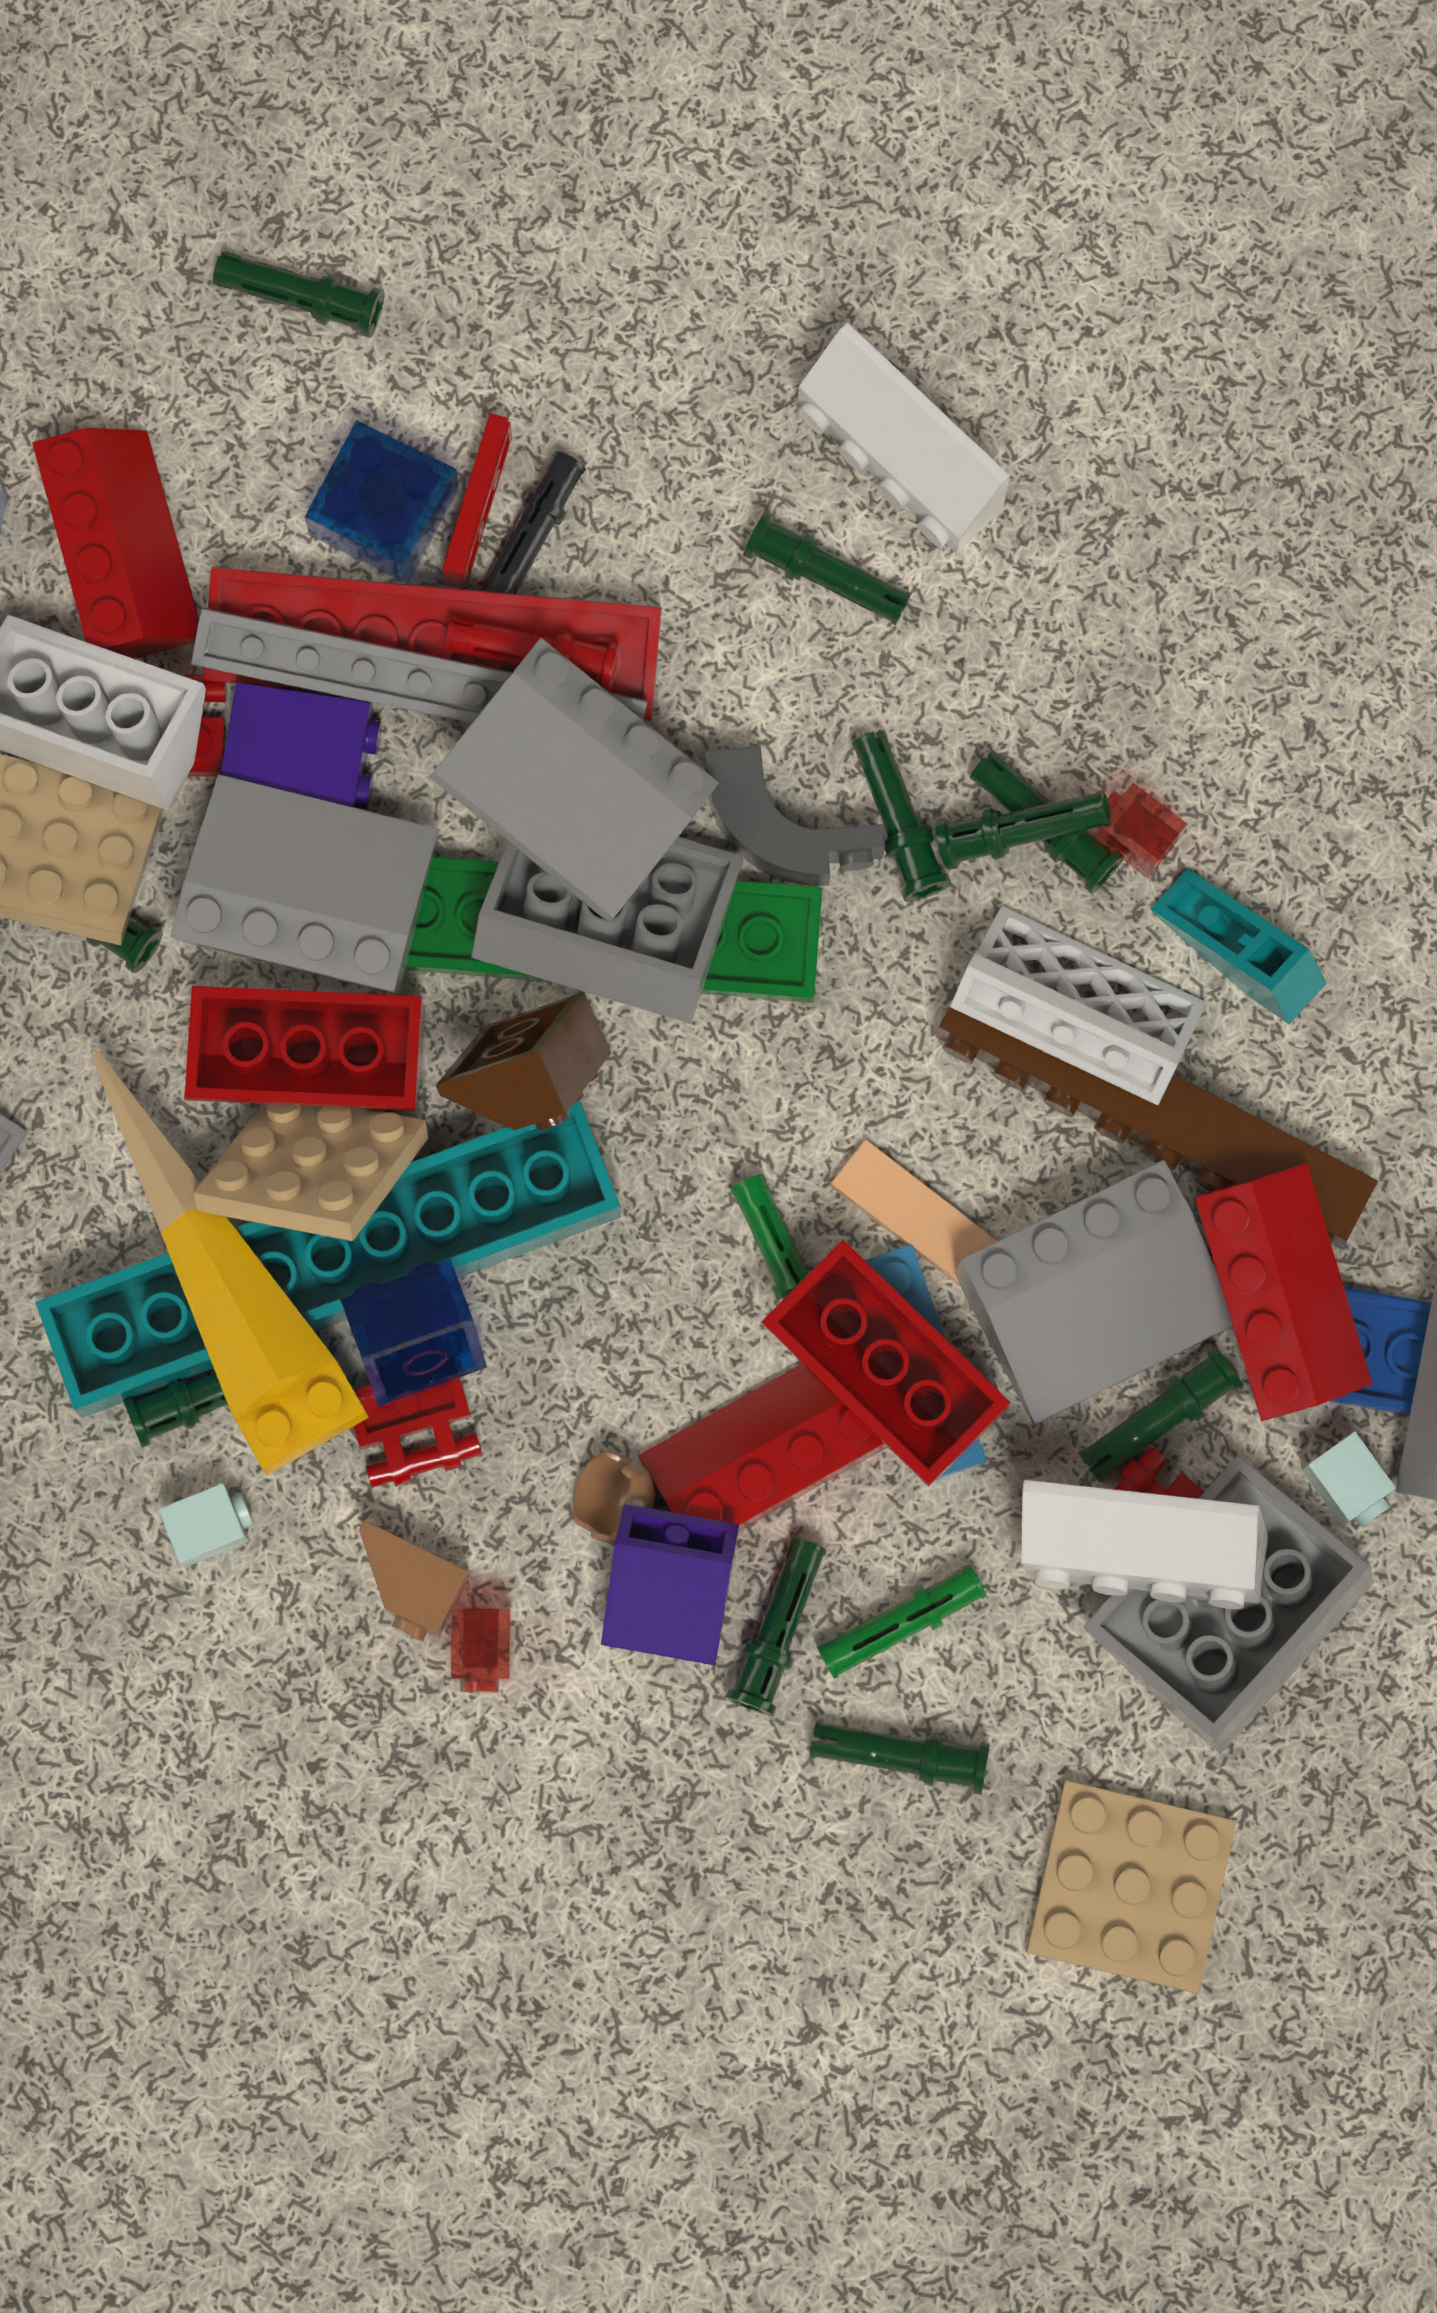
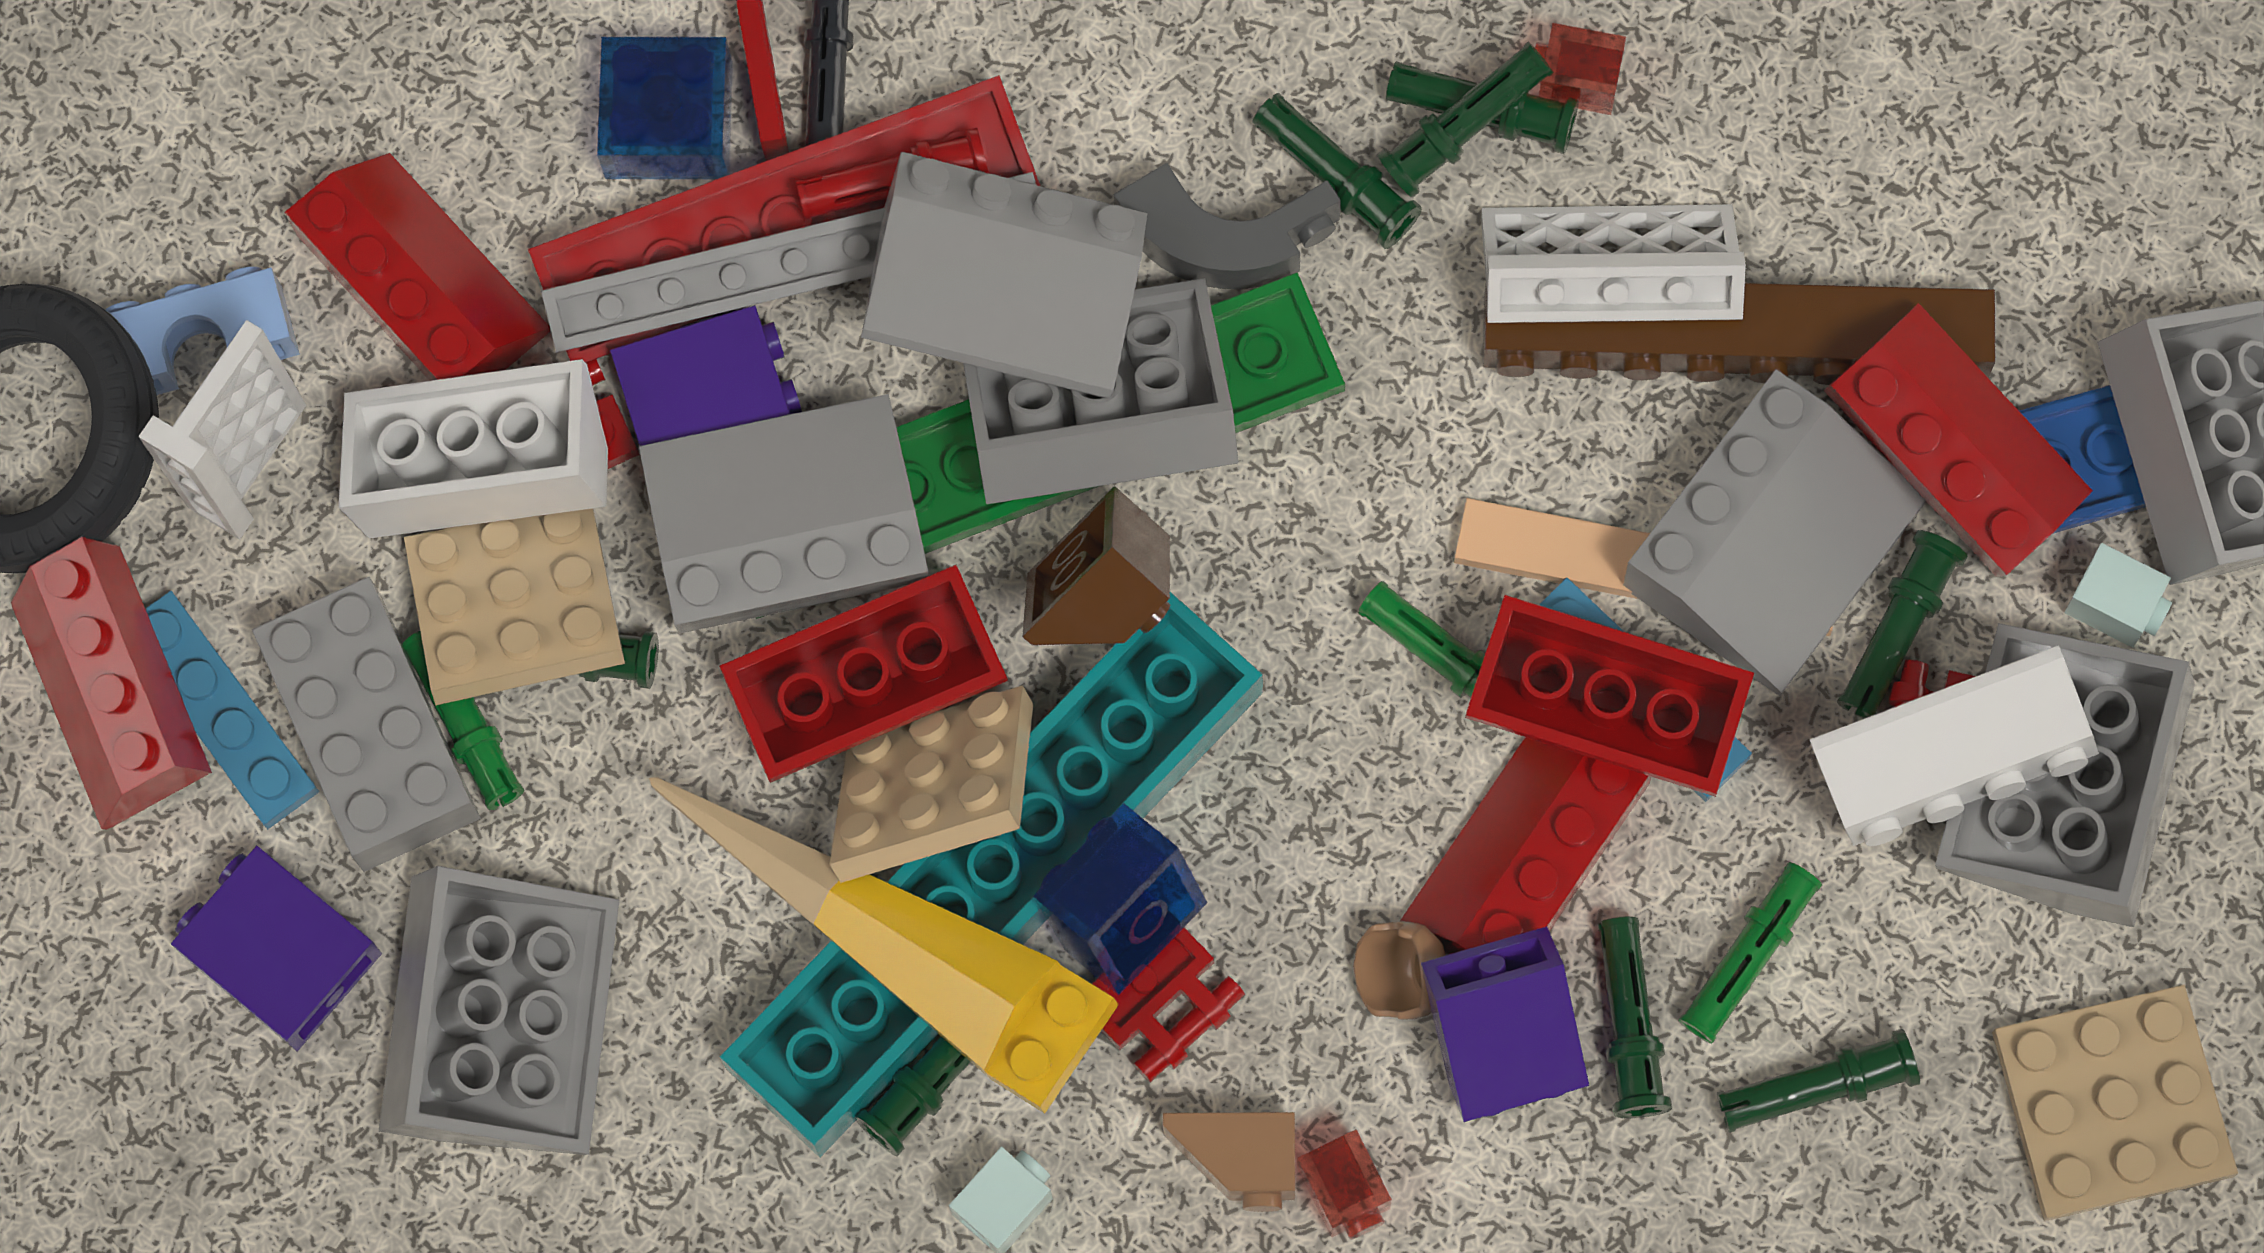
camera: 20 degrees left, 5 degrees down
(1241, 945) = (1739, 131): teal slope -> none

